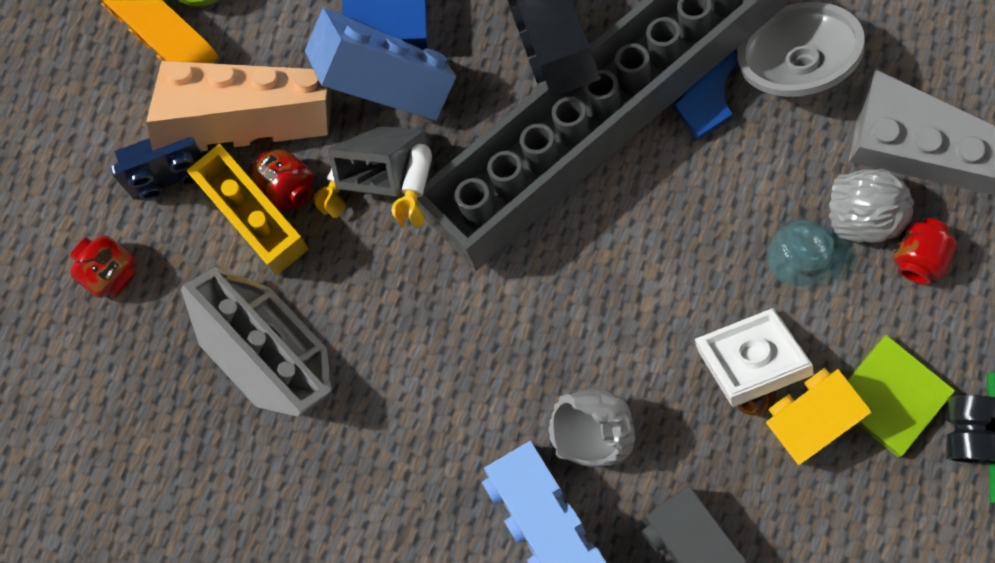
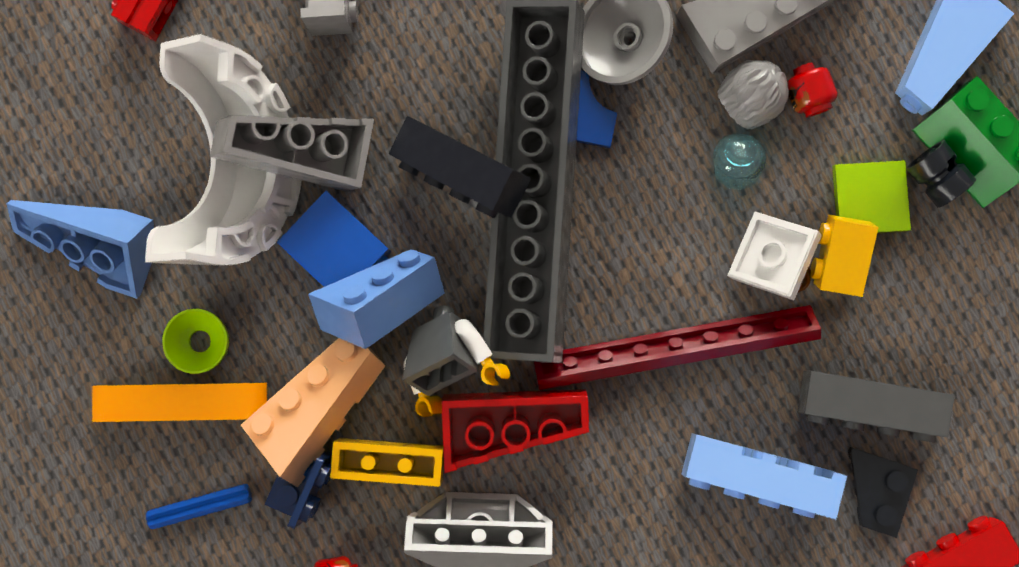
camera: 45 degrees left, 10 degrees up
(62, 103) = (198, 506): none -> blue axle
(283, 179) = (387, 421): red head -> none
(372, 269) = (508, 422): none -> red wedge
(592, 428) = (724, 391): light grey hair -> none
(593, 358) = (680, 346): none -> dark red plate

